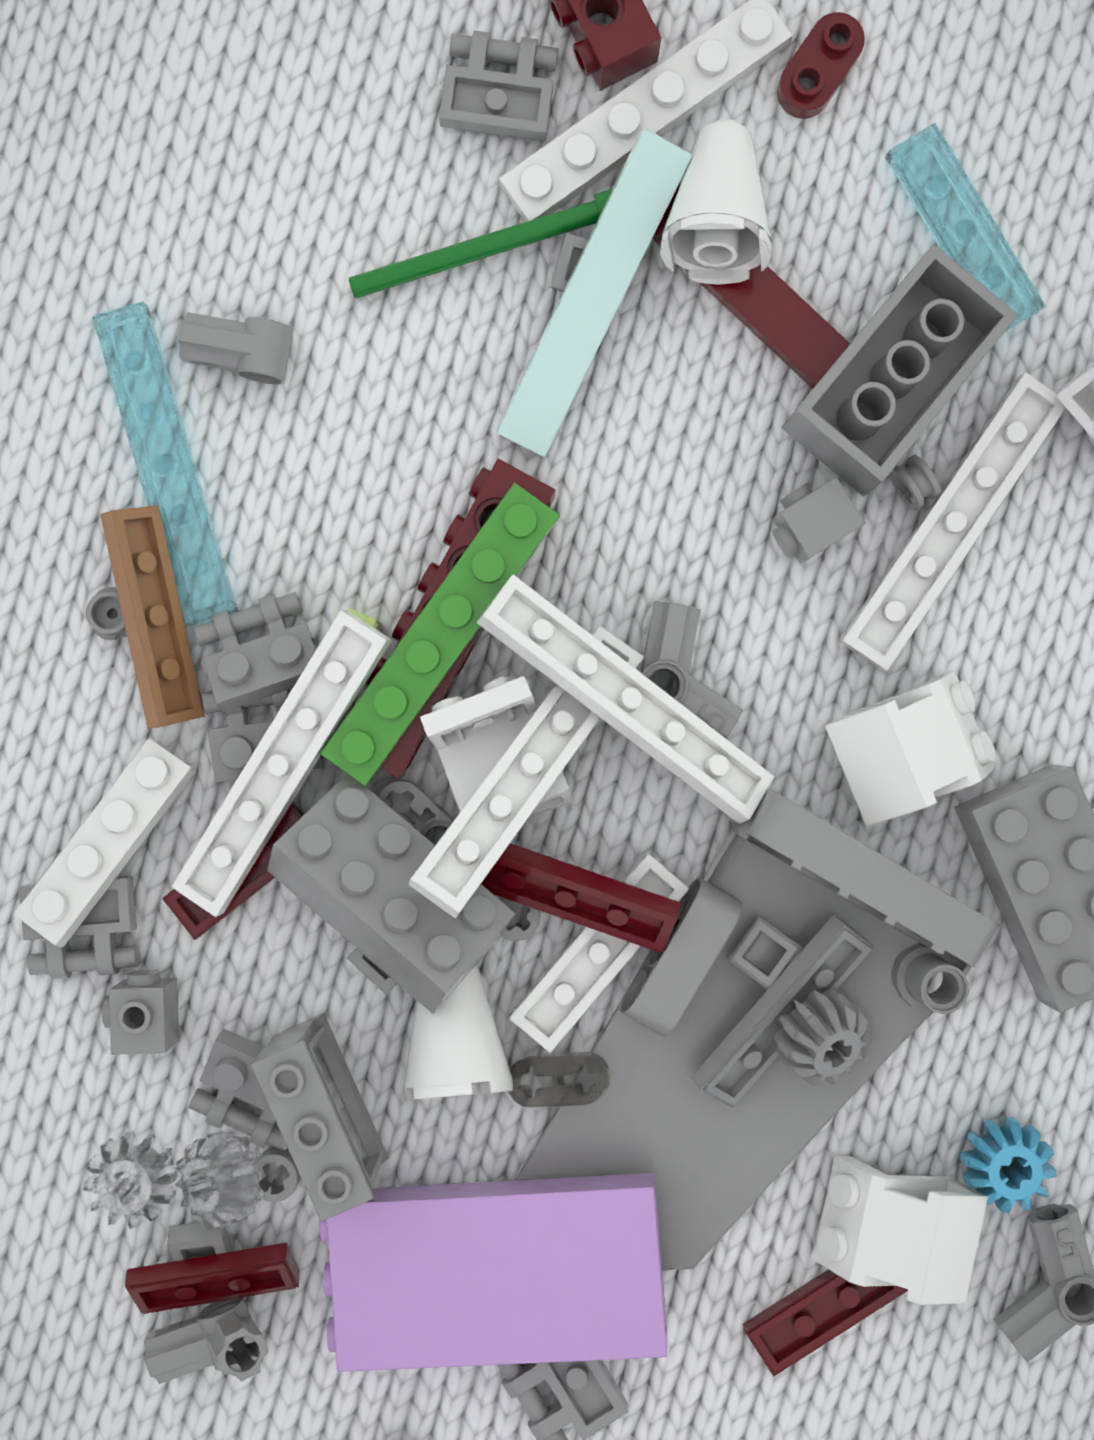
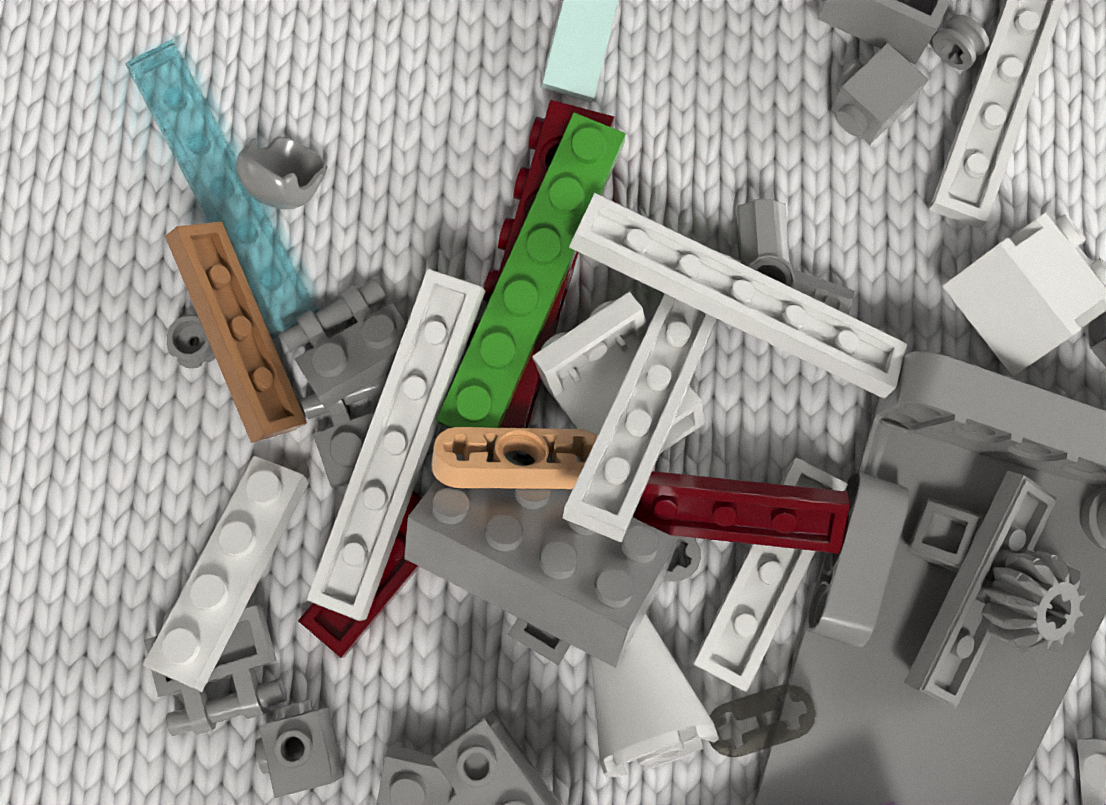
camera: 10 degrees left, 10 degrees down
(224, 467) = (281, 173): none -> light grey hair
(251, 348) = (286, 59): light grey piece -> none
(408, 796) = (477, 442): none -> light nougat beam

